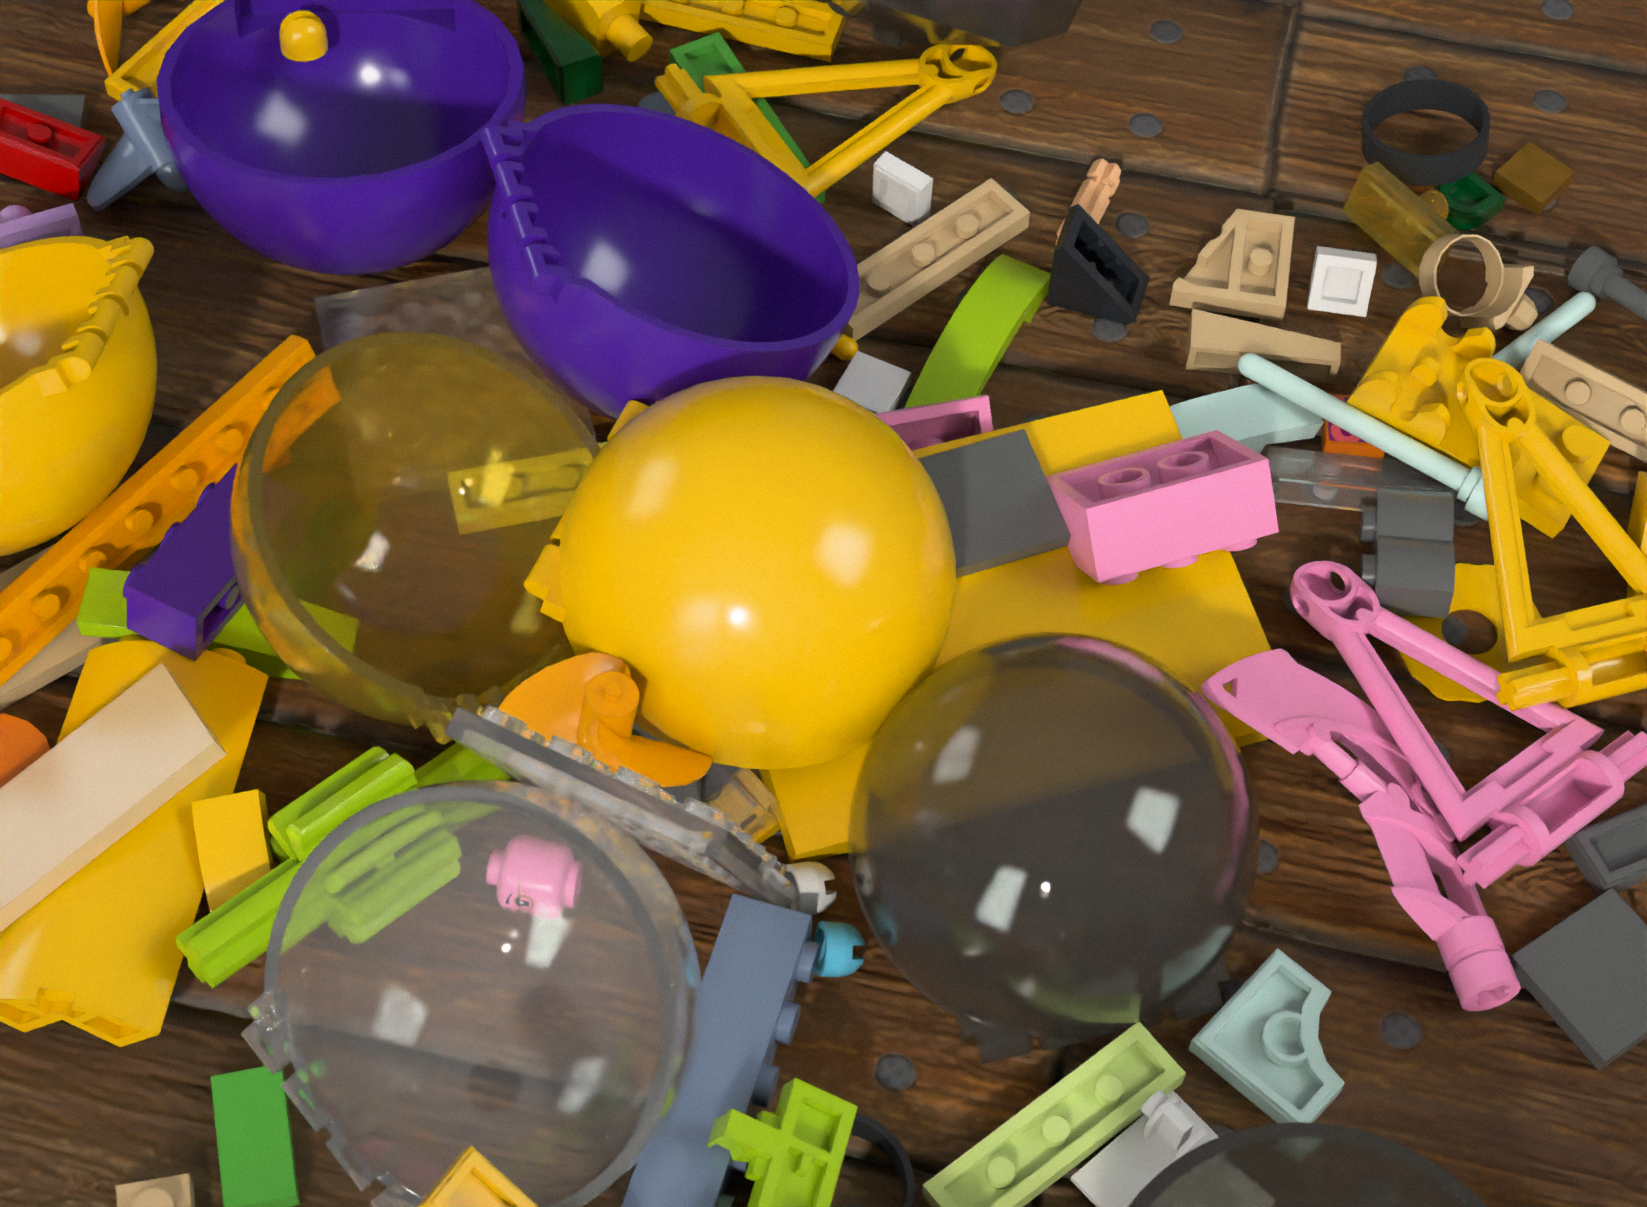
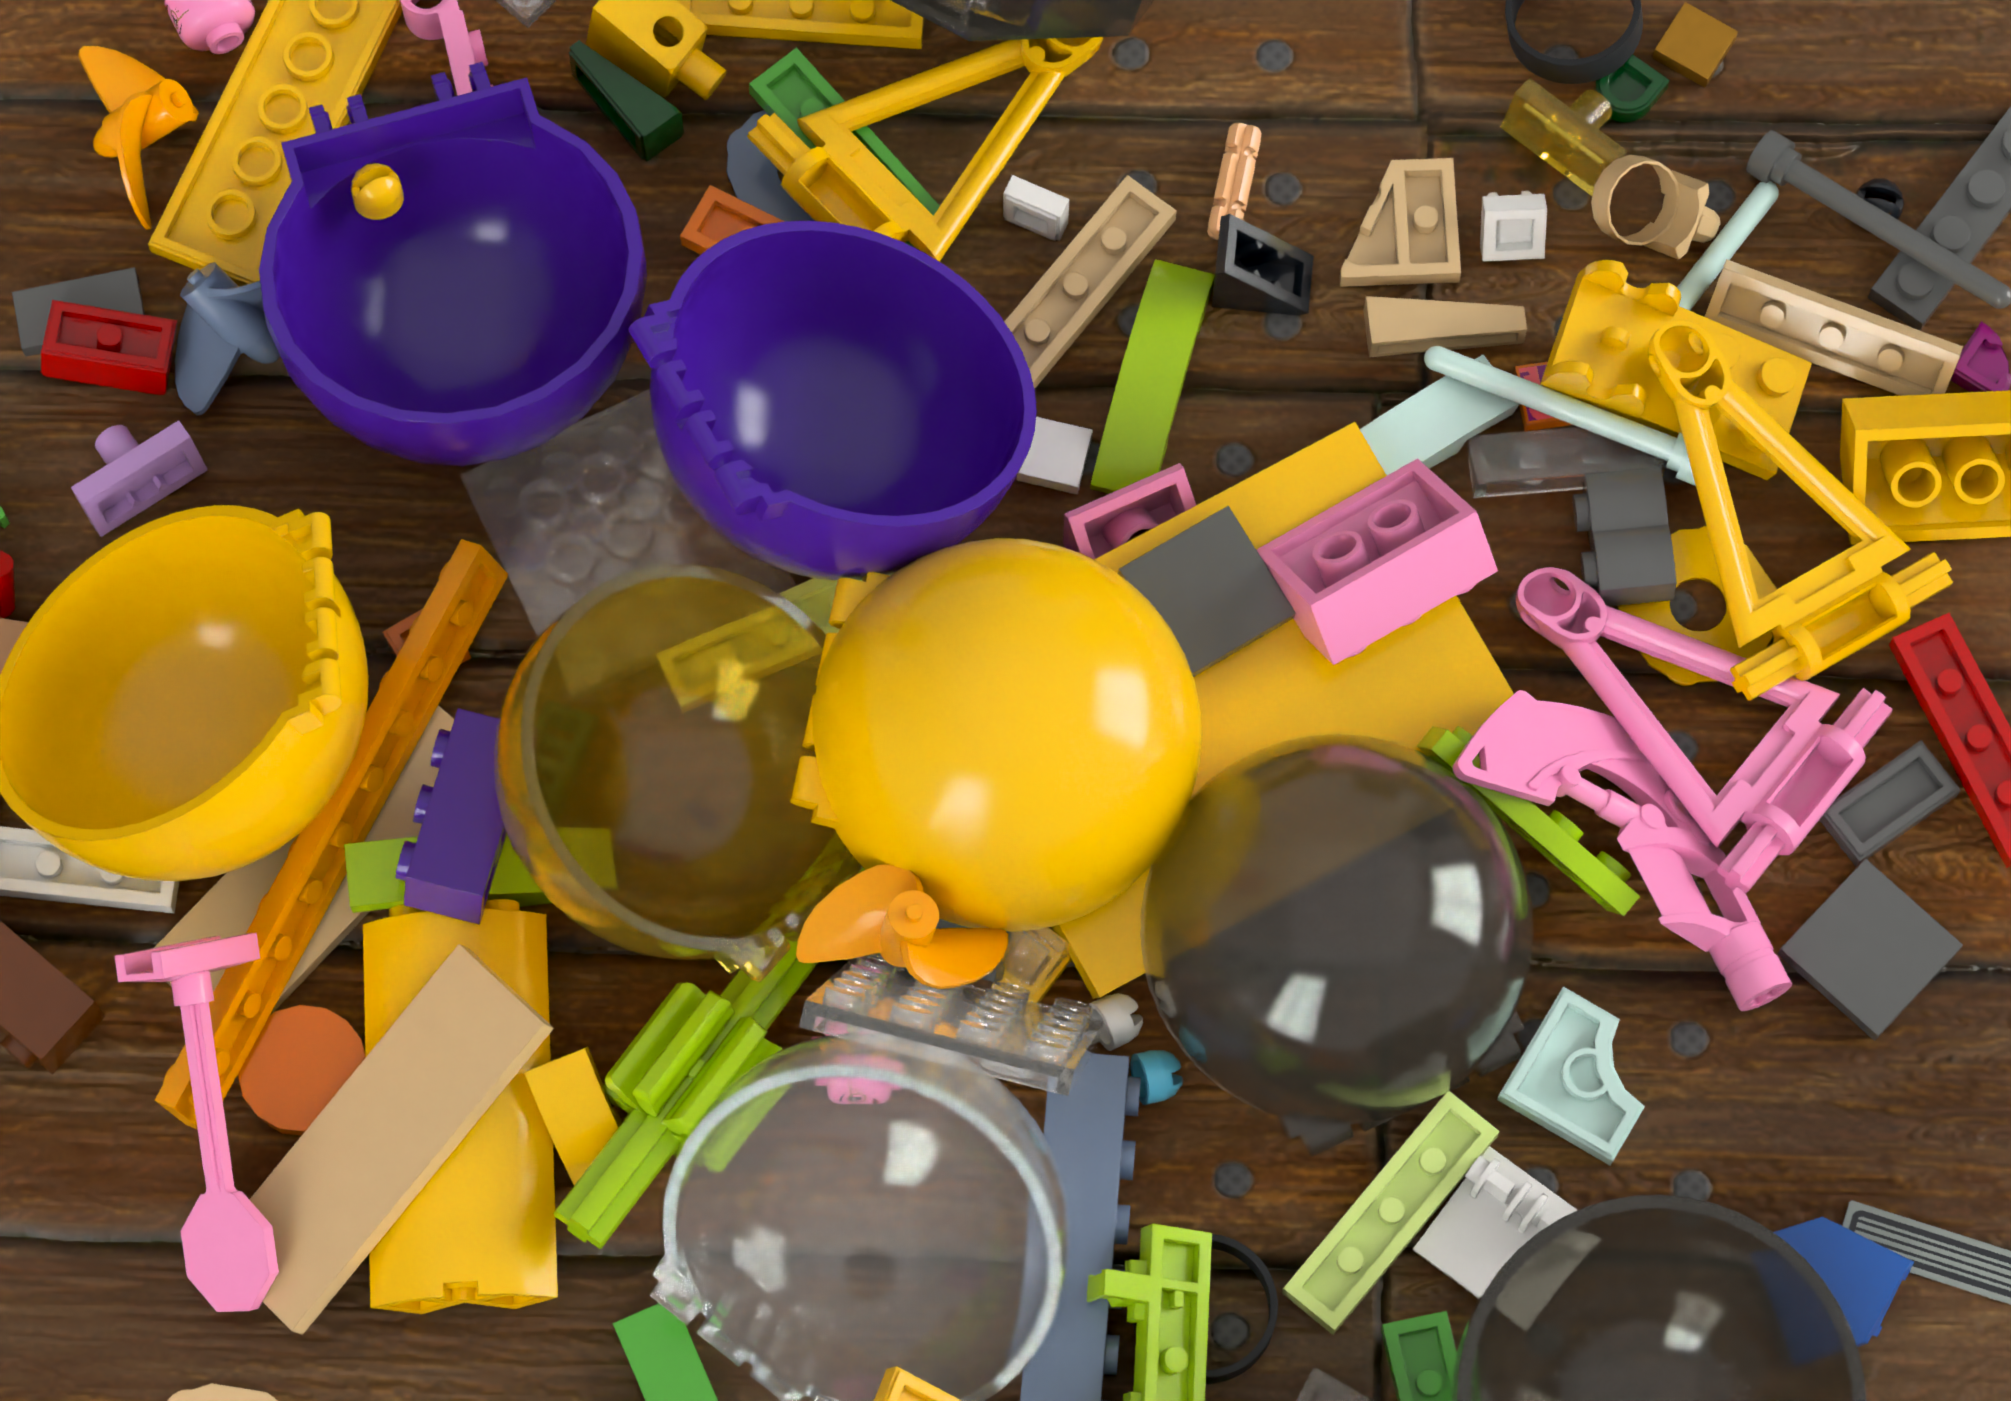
camera: 10 degrees left, 15 degrees up
(1291, 795) = (1550, 835): none -> lime plate

